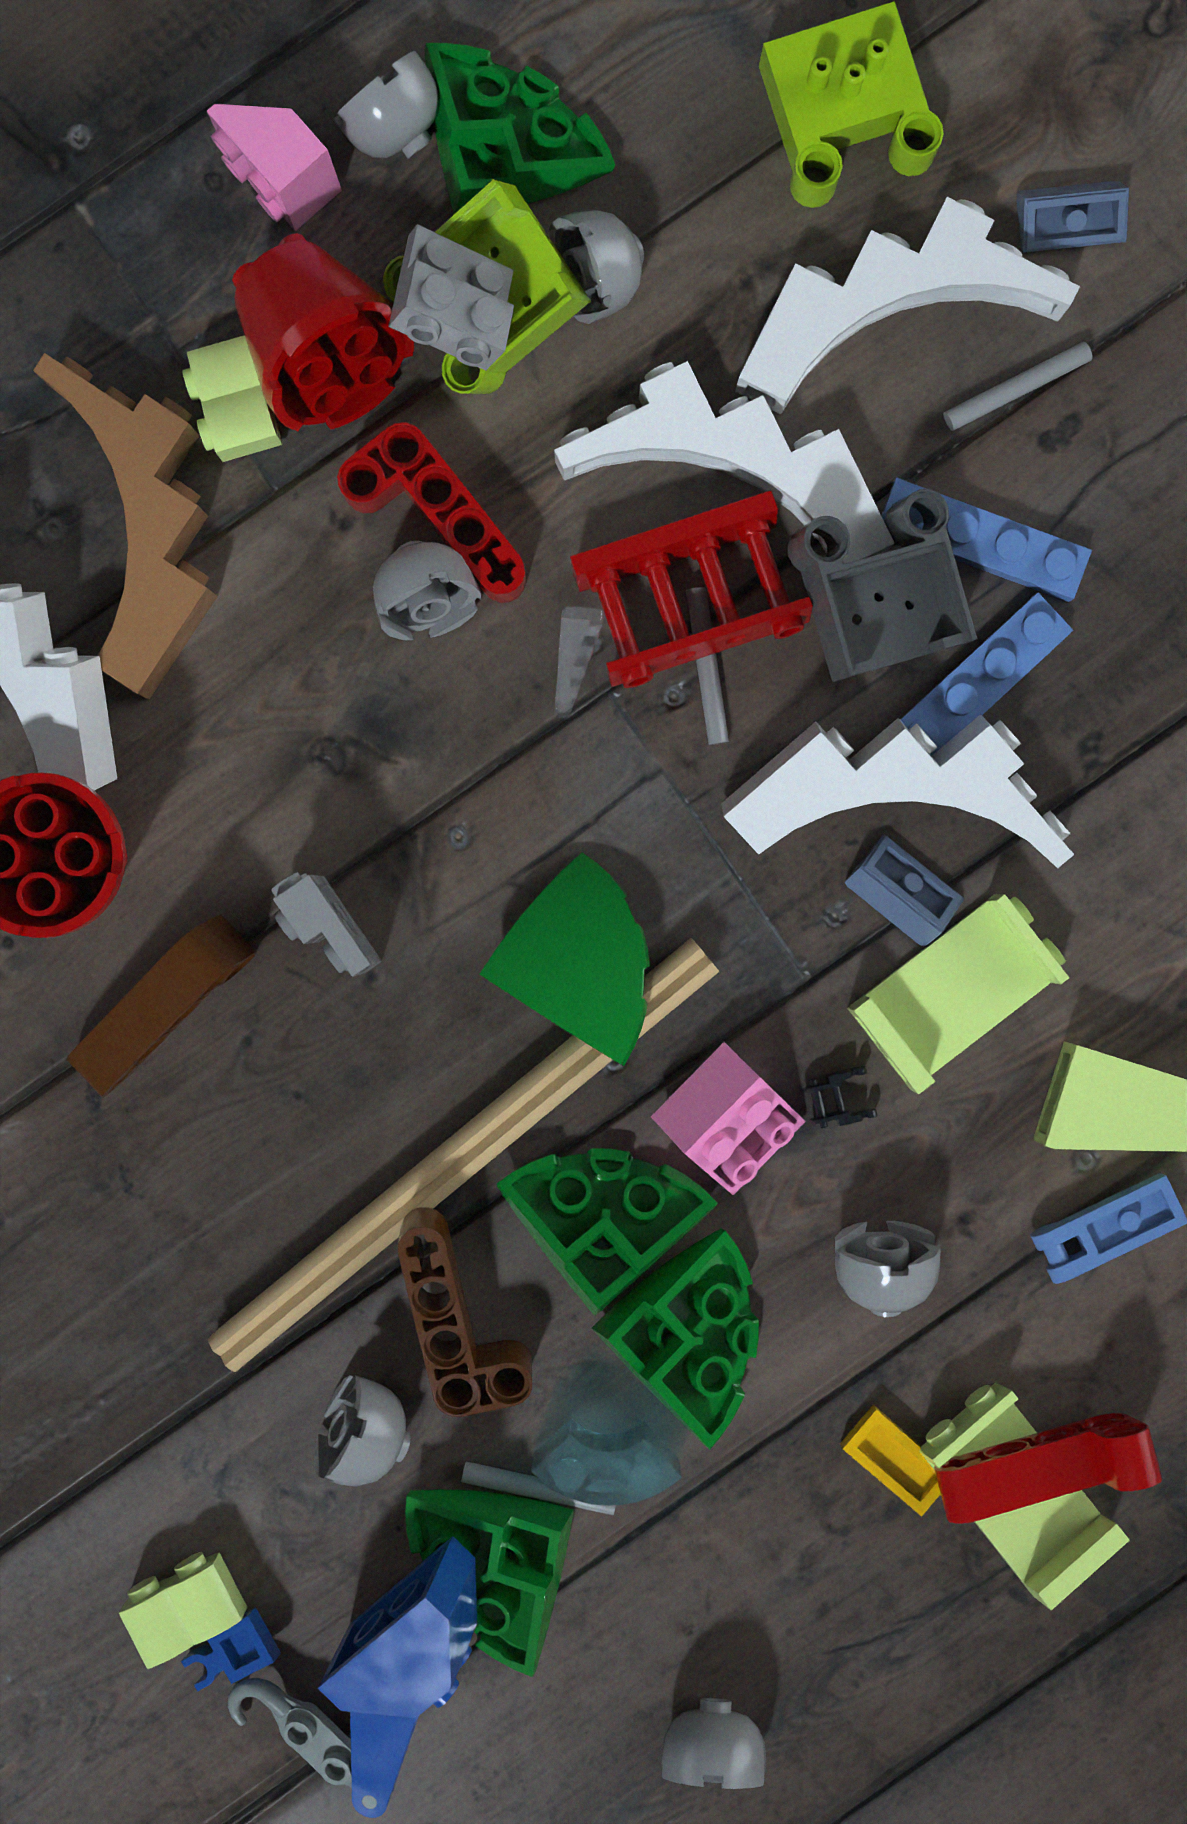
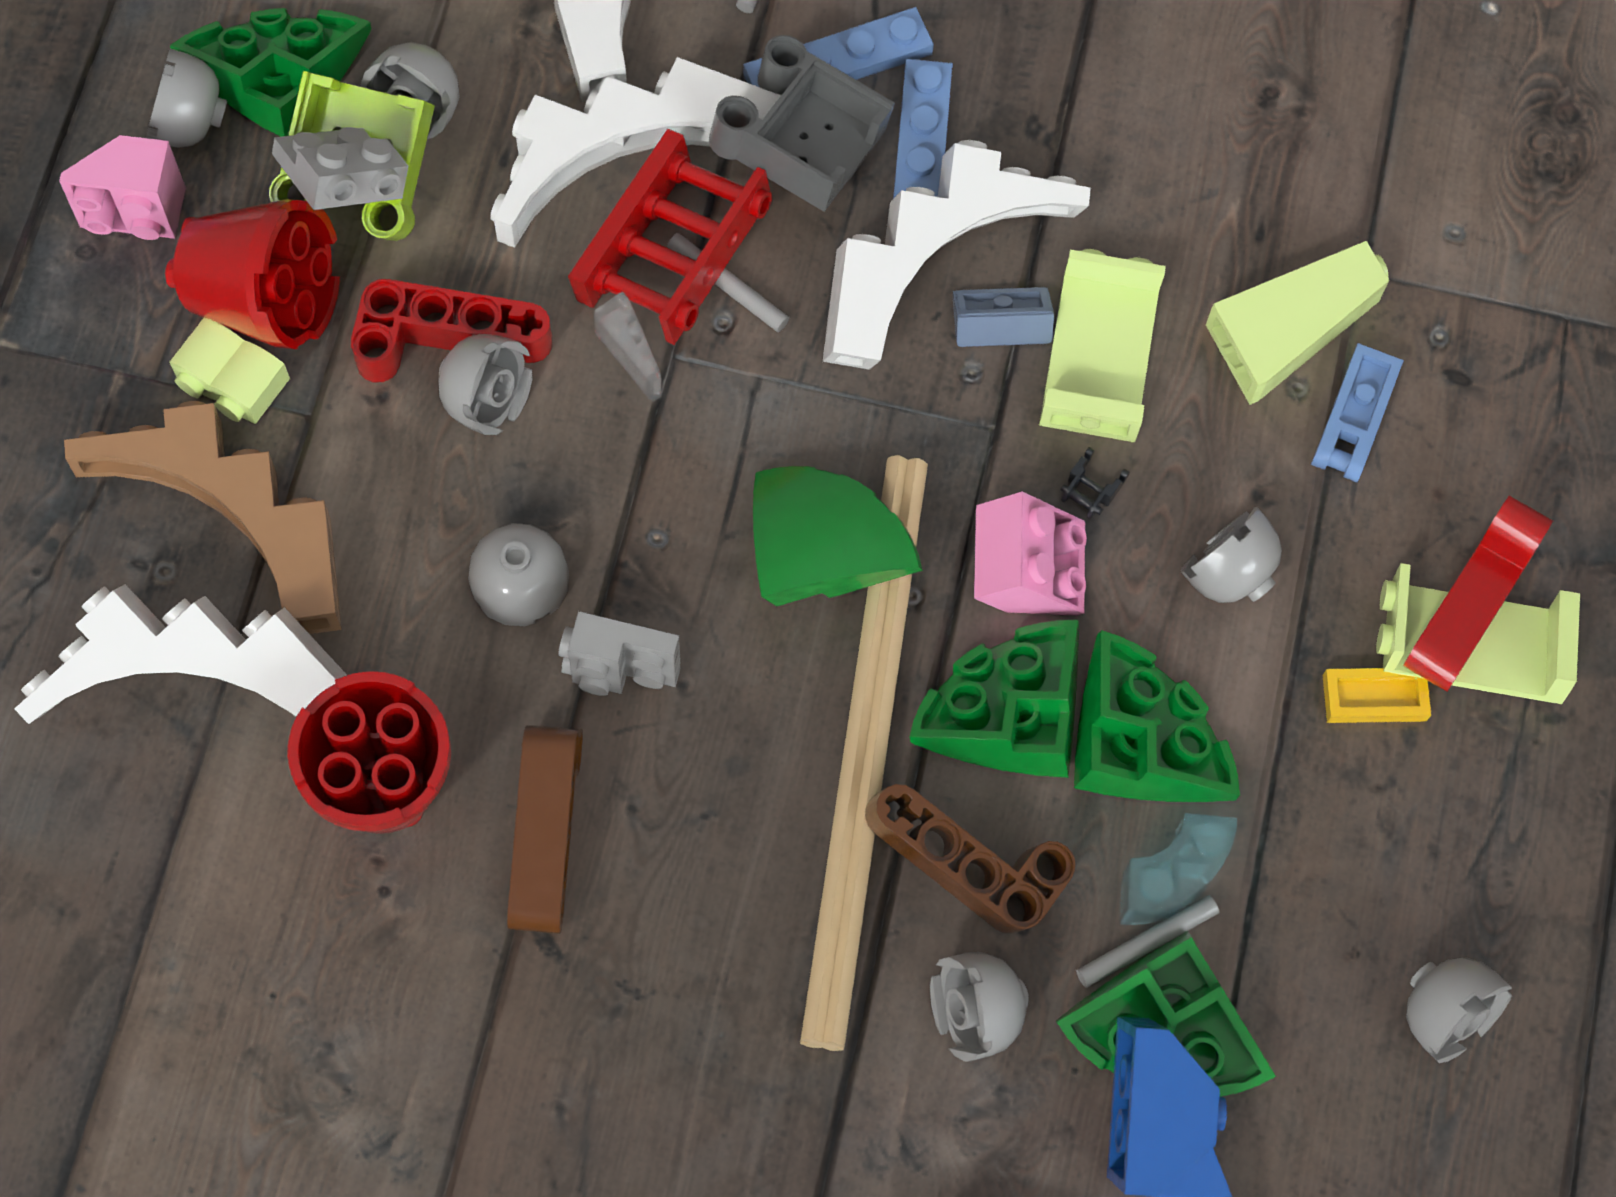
camera: 45 degrees left, 20 degrees down
(319, 777) = (518, 574): none -> light grey cylinder

